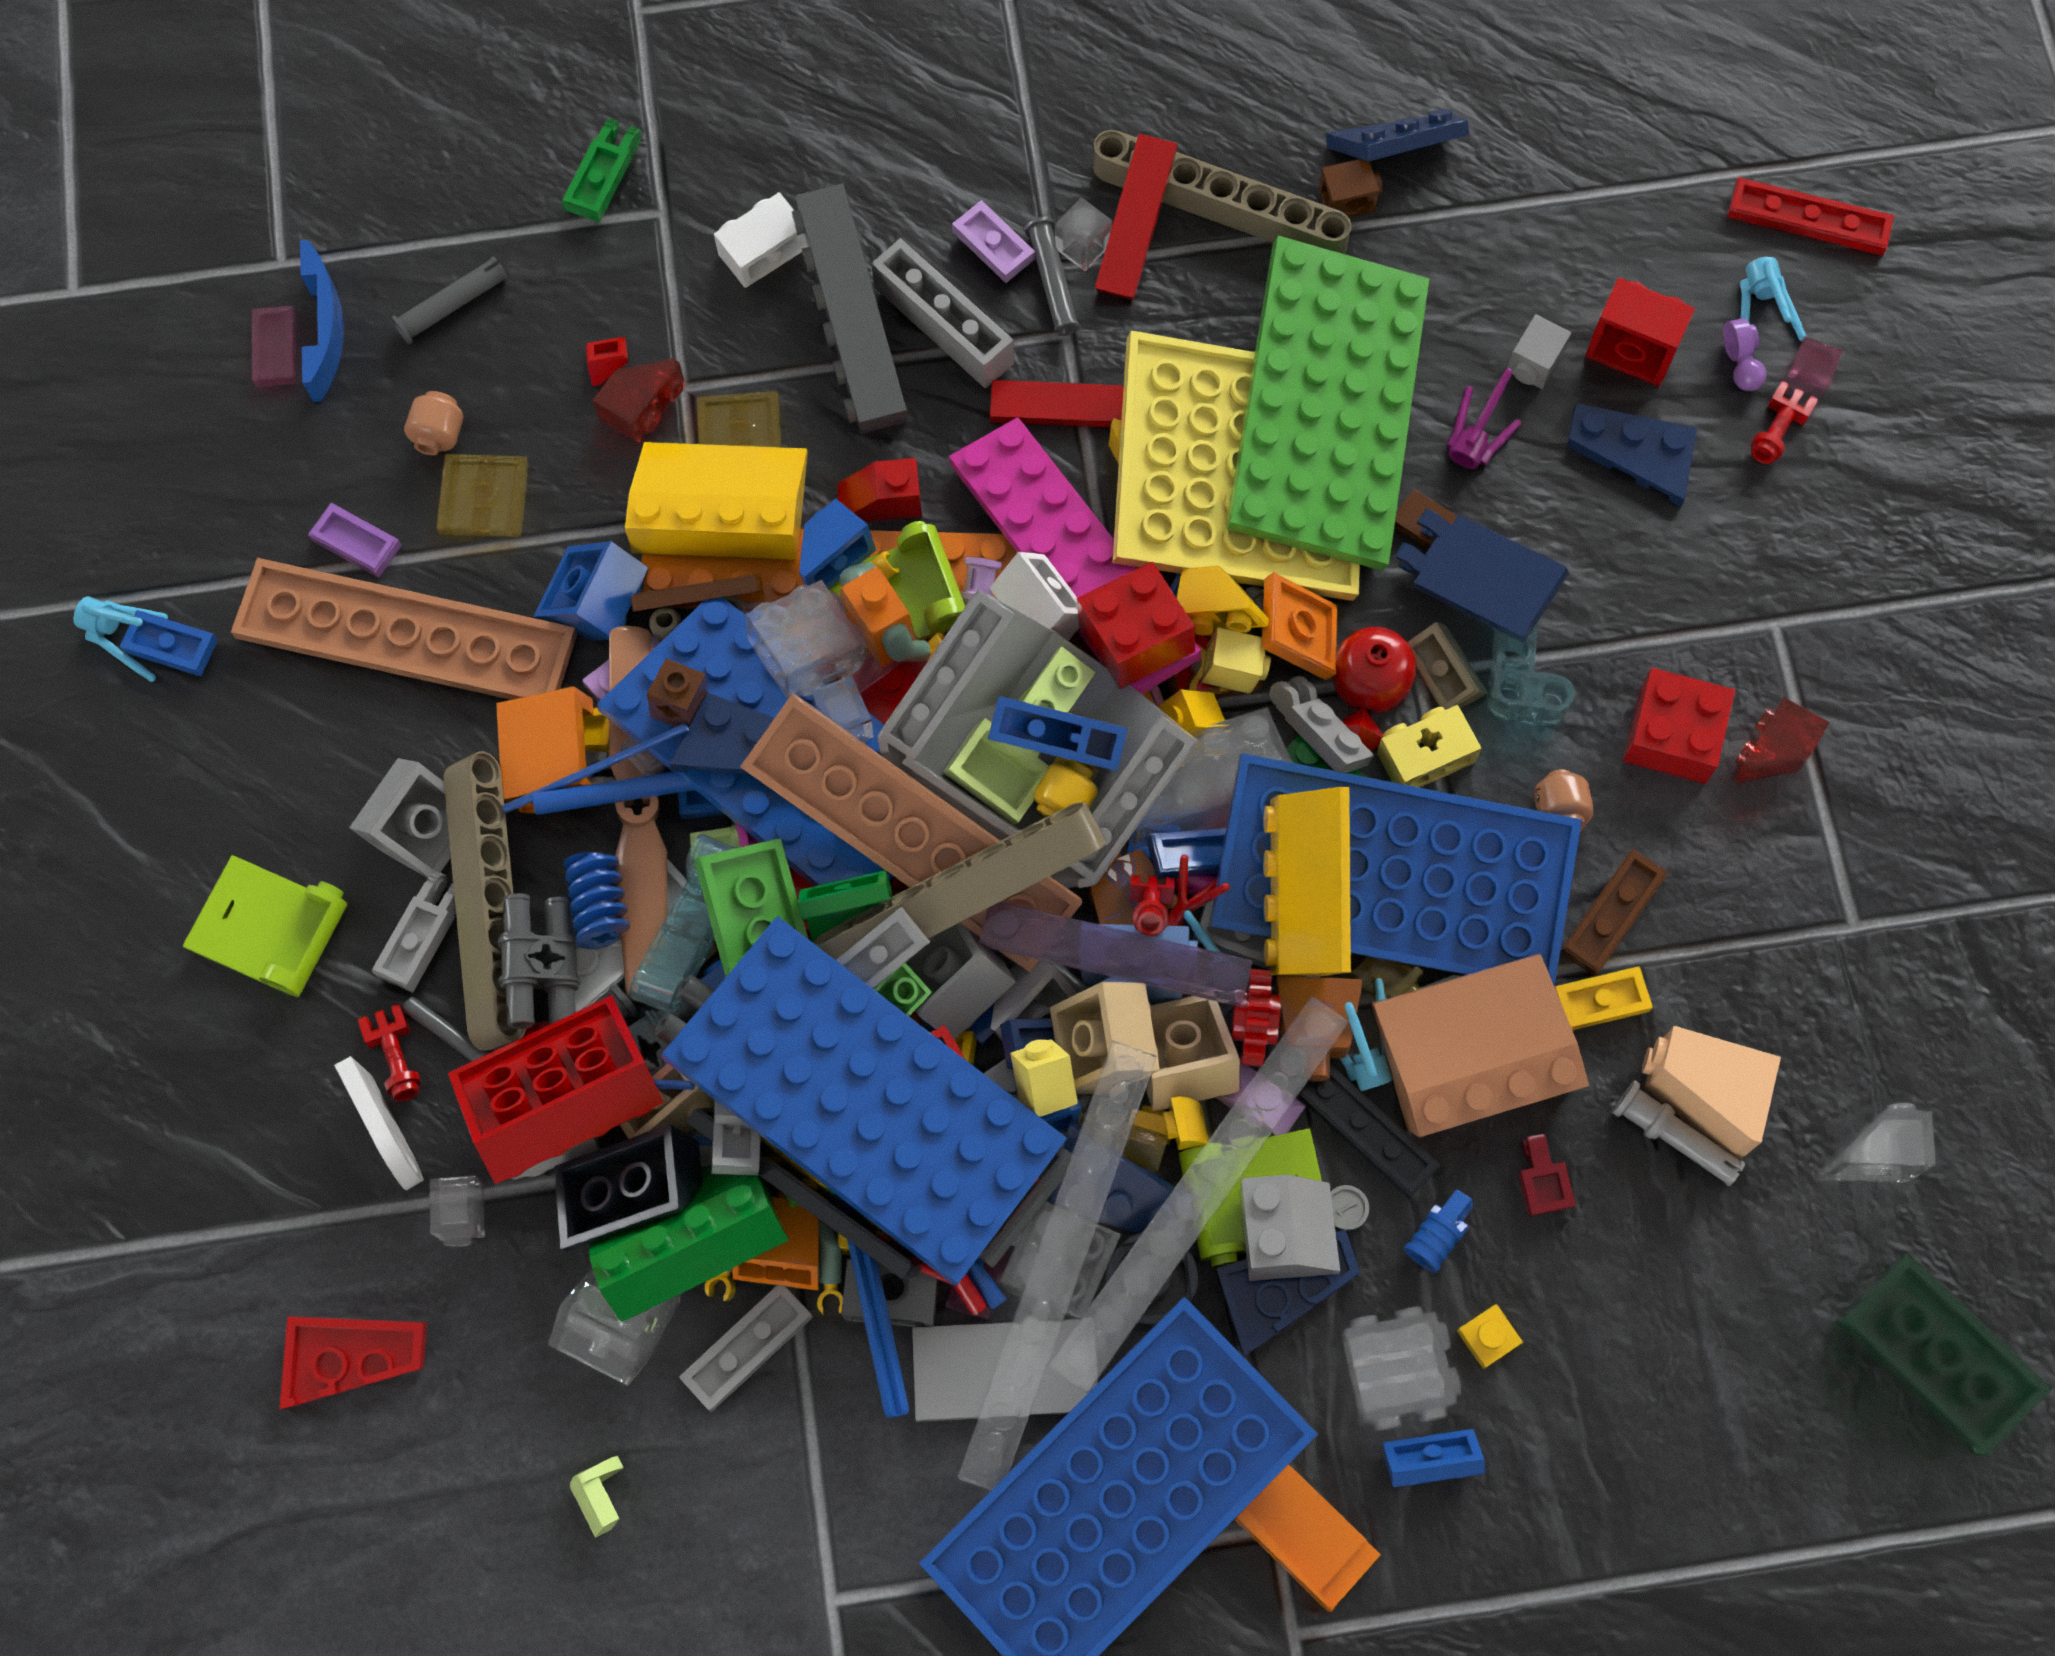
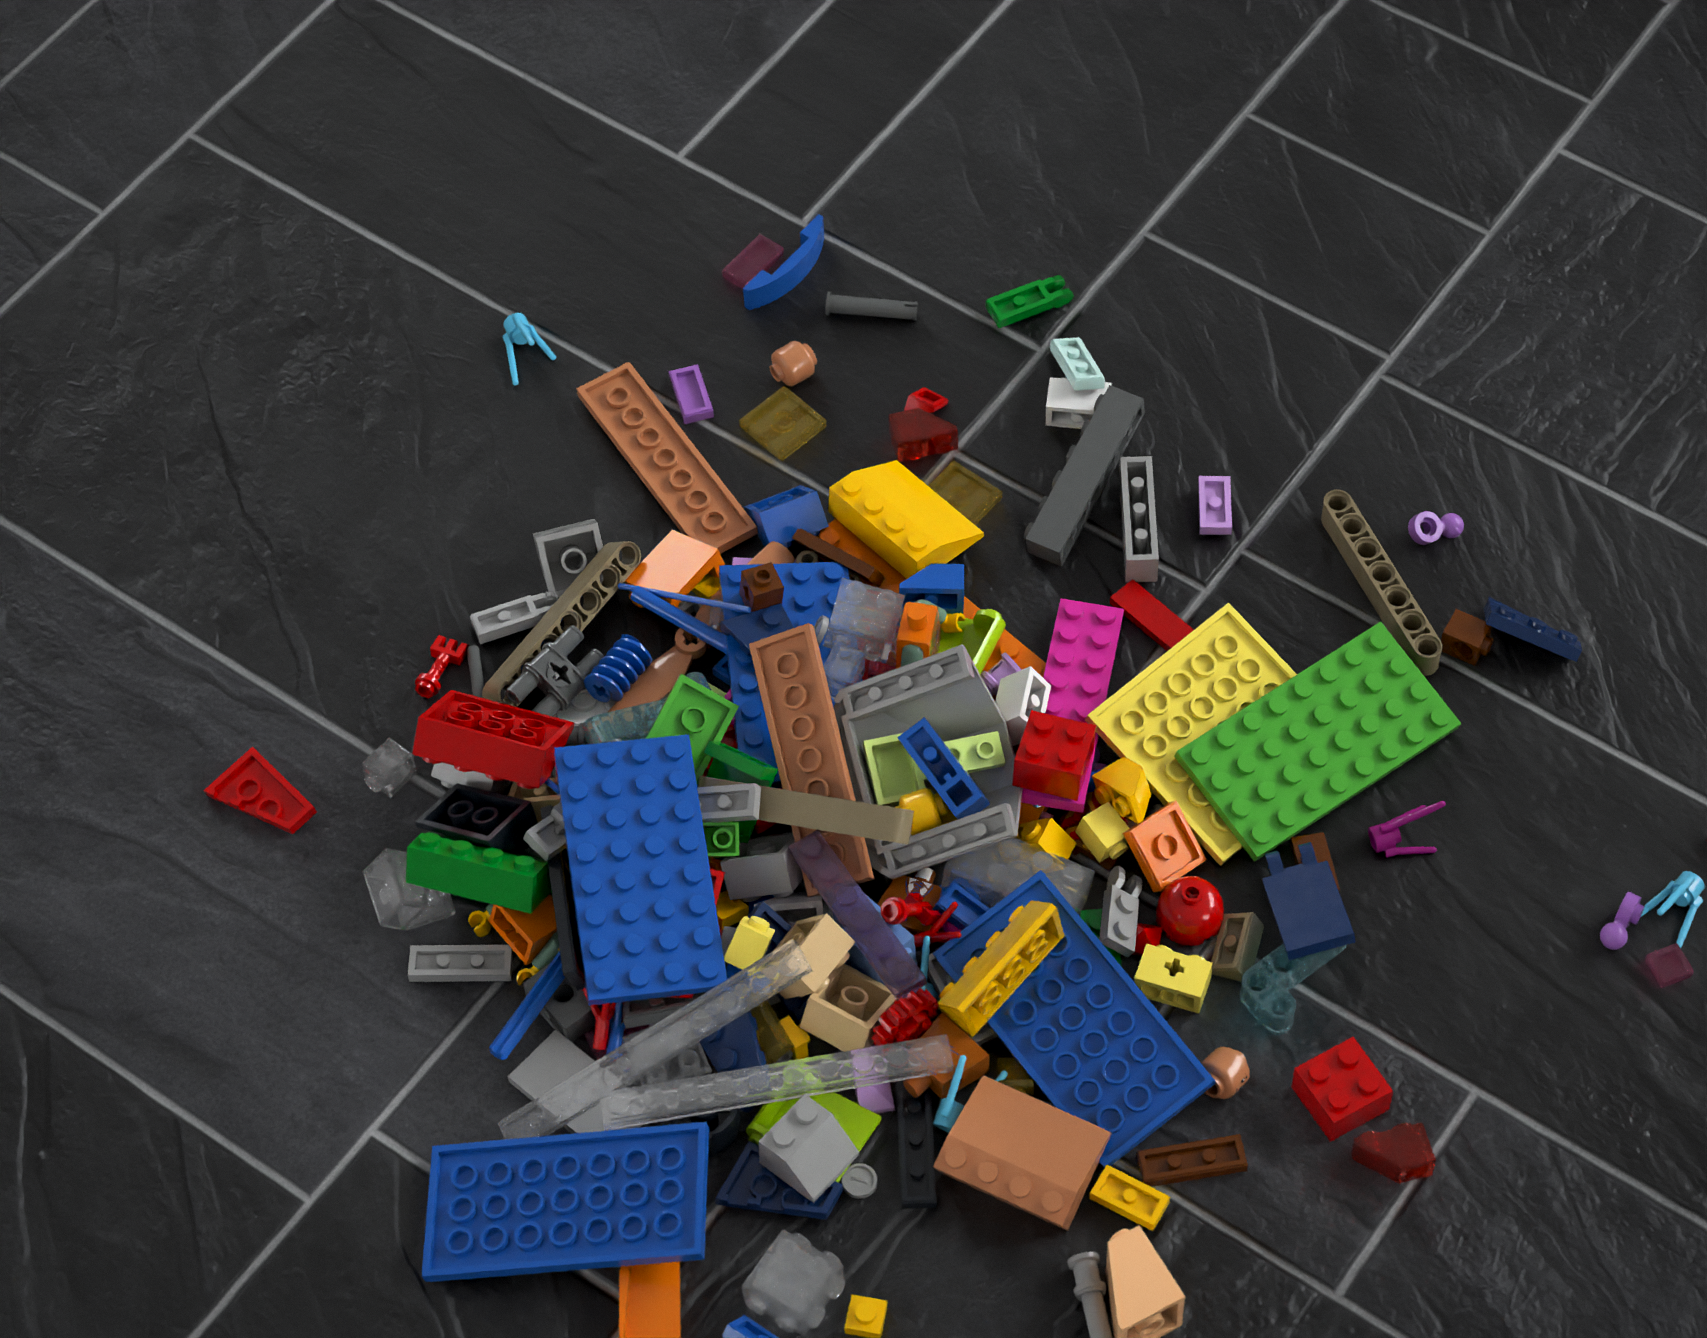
camera: 45 degrees right, 15 degrees down
(169, 643) = (540, 370): blue plate -> none
(266, 925) = (443, 550): lime door -> none
(380, 1122) = (394, 688): white tile -> none
(593, 1497) = (312, 957): yellowish green tile -> none
(724, 198) = (1077, 364): none -> light aqua tile
(775, 688) = (821, 627): none -> light grey piece
(883, 491) = (1004, 590): red slope -> none
(1052, 275) = (1231, 549): dark grey pin -> none
(1083, 234) = (1271, 539): clear brick -> none
(1136, 216) = (1311, 552): red tile -> none
(1185, 1123) = (808, 1040): yellow slope -> none
(1208, 105) = (1449, 526): none -> medium lavender plate
(1440, 1232) = (897, 1235): blue hinge -> none
(1538, 351) = (1486, 817): light grey brick -> none
(1546, 1184) = (986, 1264): dark red plate -> none
(1639, 331) = (1559, 850): red brick -> none
(1643, 447) = (1496, 922): dark blue wing -> none
(1768, 445) = (1621, 975): red hinge -> none

